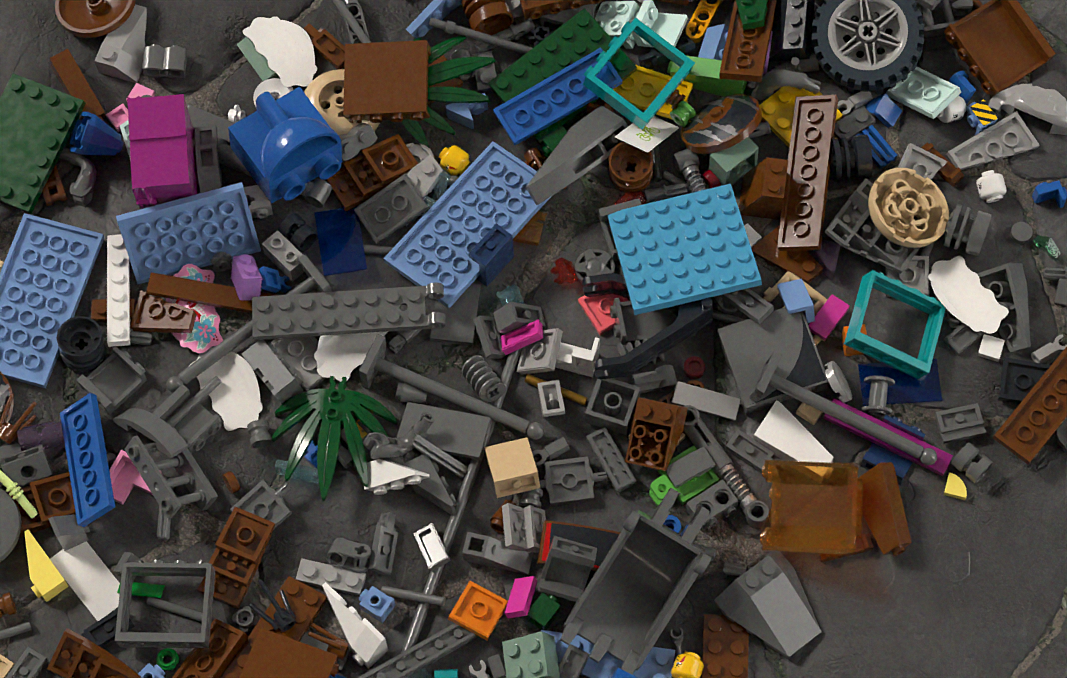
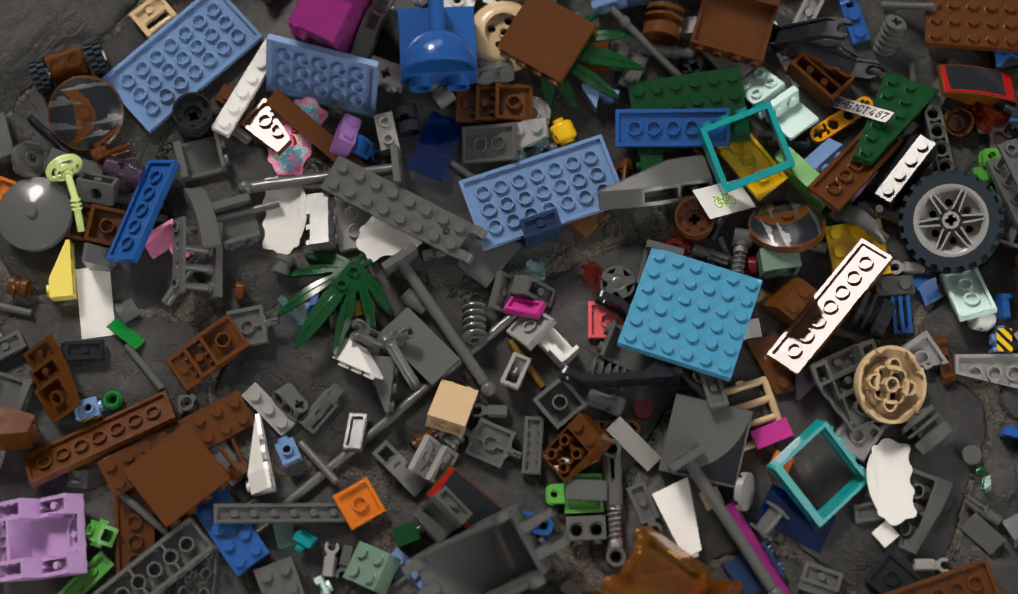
camera: 30 degrees right, 10 degrees up
(163, 640) = (106, 337): dark grey window -> none
(284, 618) = (209, 423): black plant -> none
(521, 597) = (396, 513): dark pink tile -> none
(675, 98) = (764, 184): reddish brown bush -> none
(682, 113) = (762, 199): bright green wheel -> none
(797, 298) = (753, 406): medium blue panel -> none
(991, 186) = (971, 403): white head -> none

